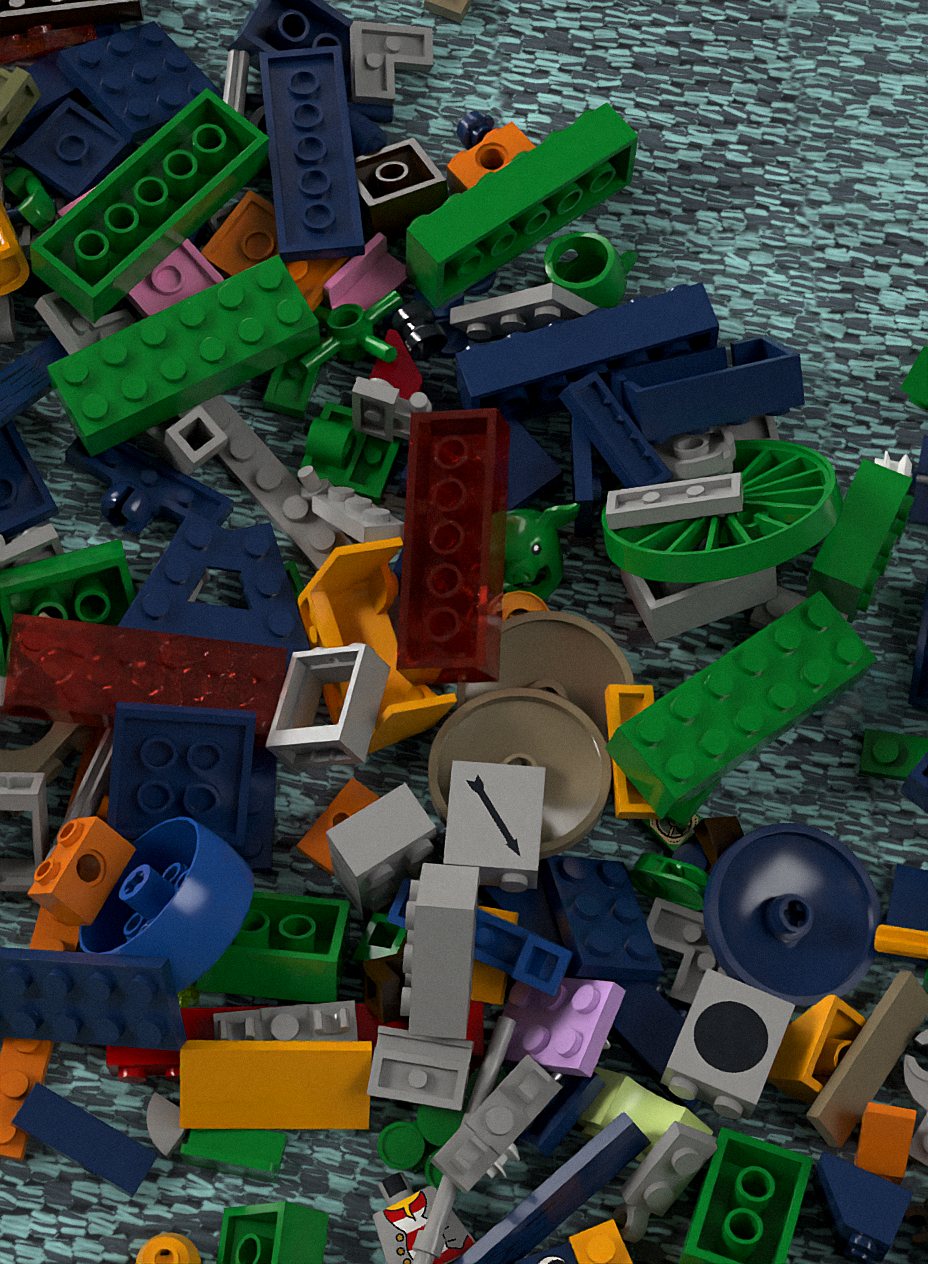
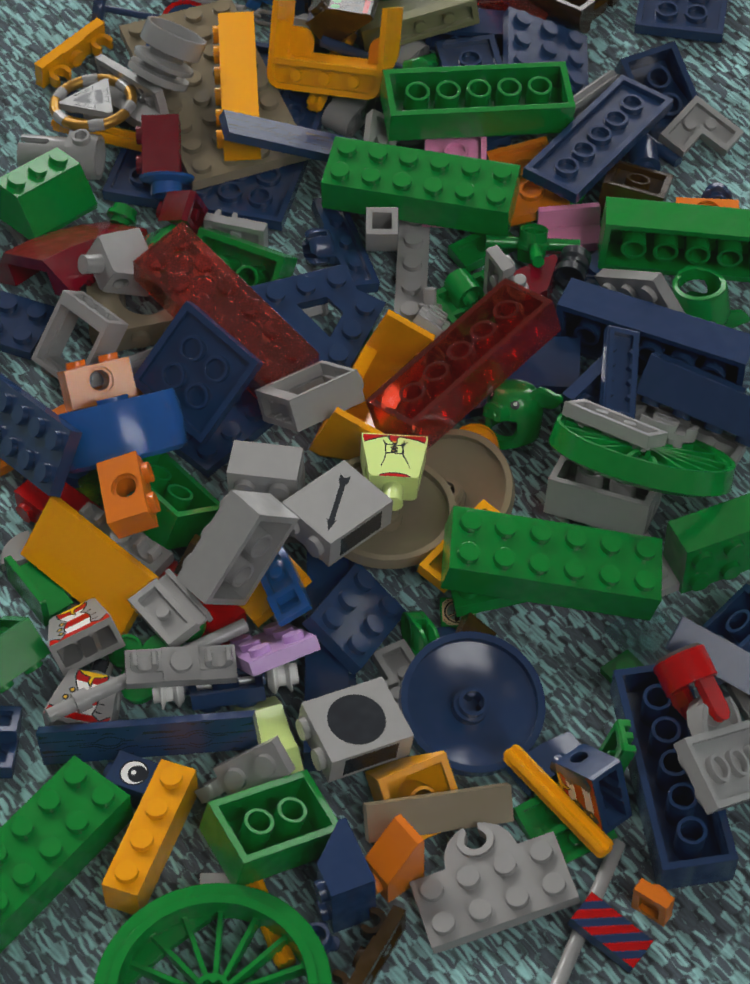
camera: 40 degrees right, 15 degrees down
(239, 973) = (119, 478): none -> orange brick
(345, 1167) = (82, 635): none -> light grey torso
(494, 722) = (394, 464): none -> yellowish green torso

